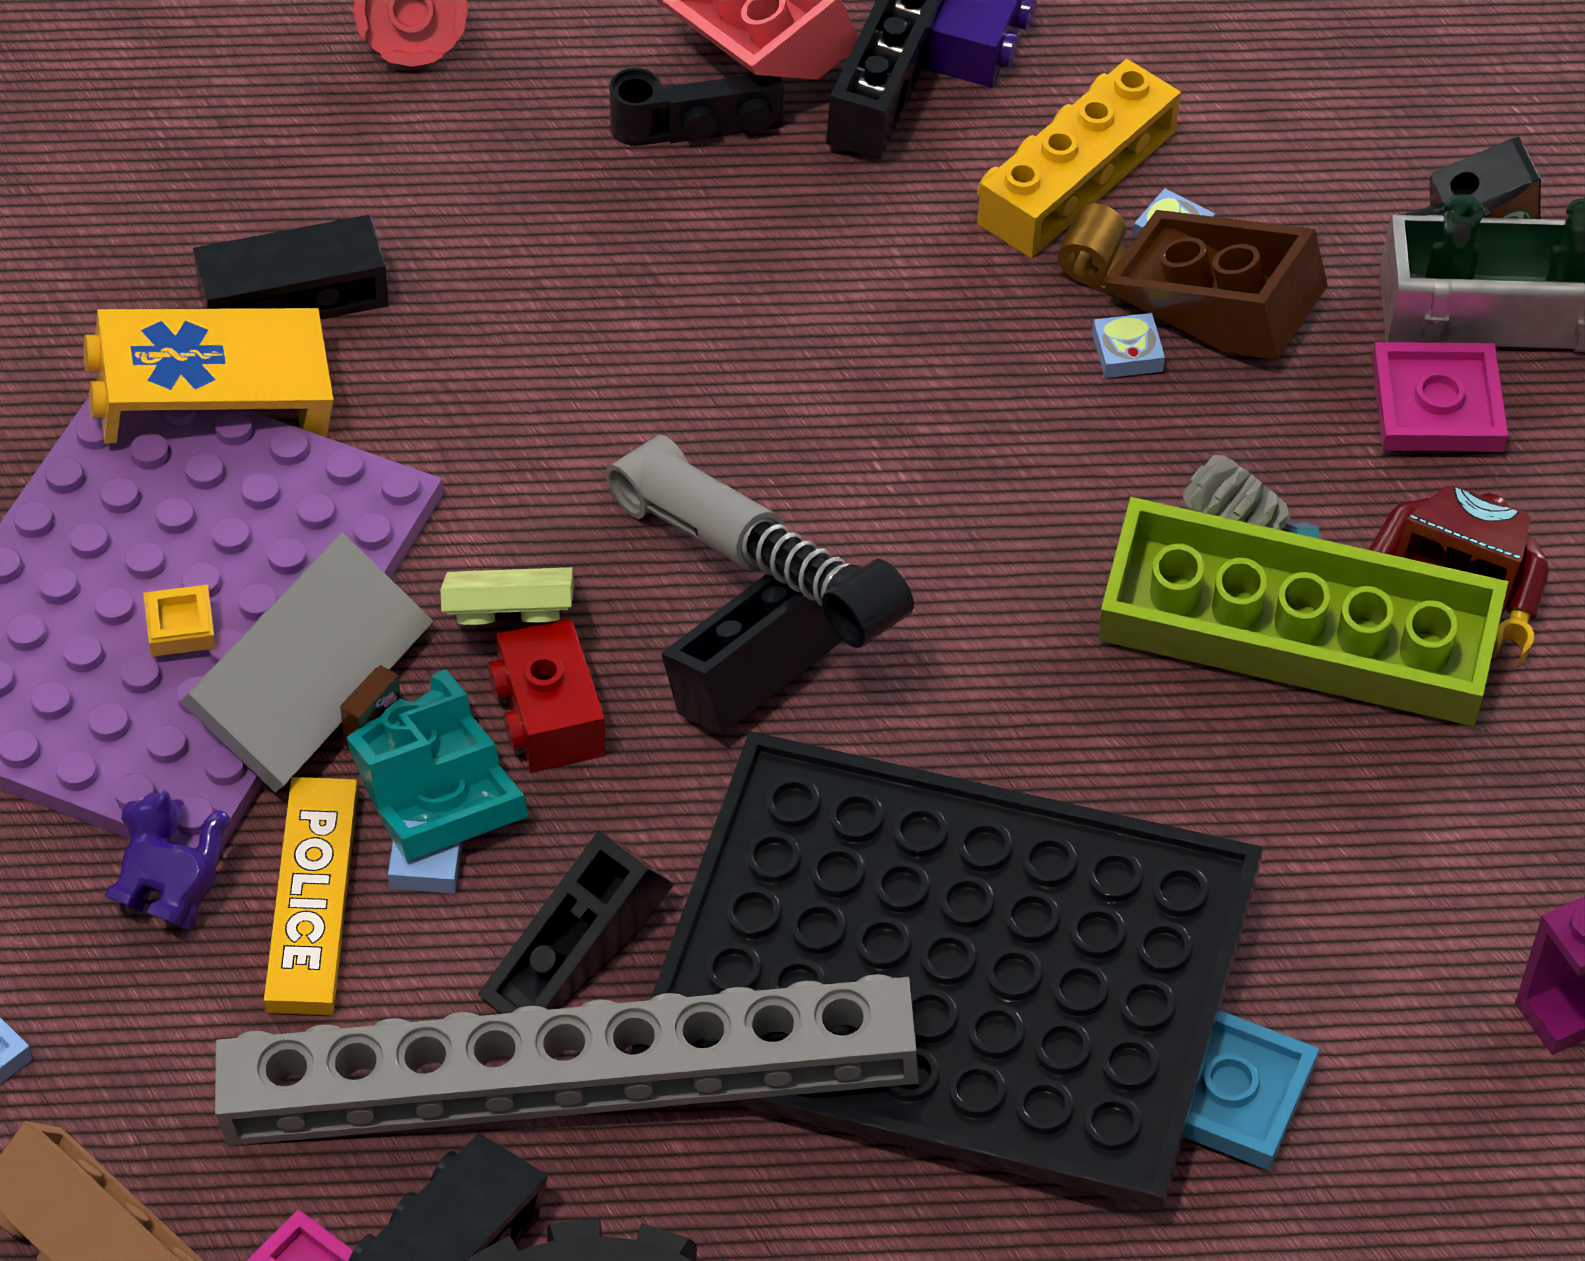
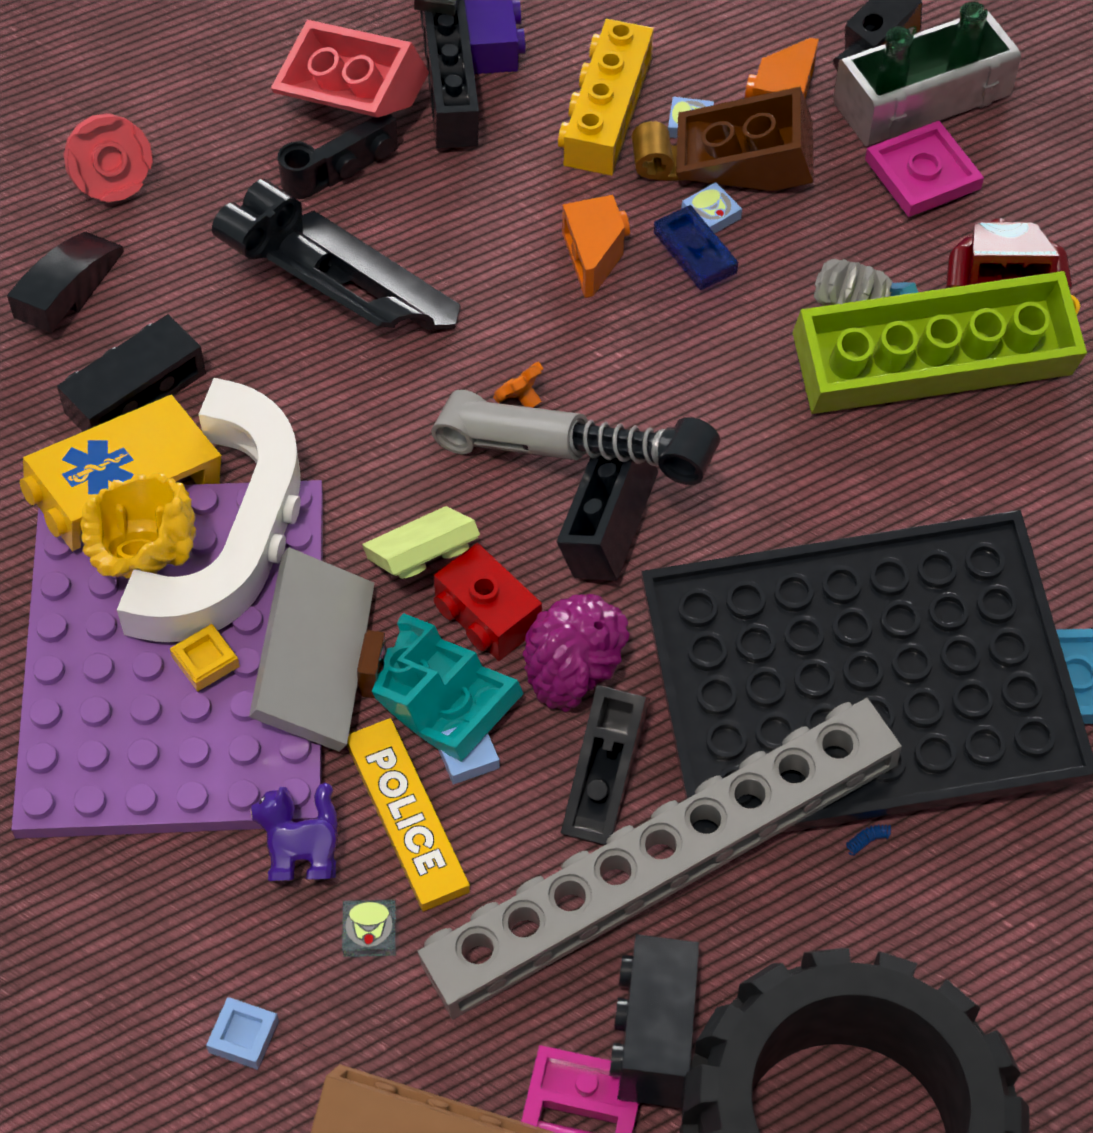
camera: 25 degrees left, 5 degrees up
(178, 438) = (138, 526): none -> yellow hair
(191, 1002) = (369, 928): none -> tile
(281, 132) = (63, 280): none -> black slope
(293, 524) = (178, 607): none -> white arch
(605, 217) = (326, 256): none -> black panel
(611, 782) = (573, 649): none -> magenta hair
(748, 464) = (521, 387): none -> orange plant
(854, 1159) = (876, 833): none -> blue leg
(950, 325) = (594, 239): none -> orange slope
(1074, 382) = (695, 247): none -> clear blue plate
(1337, 208) = (785, 70): none -> orange slope

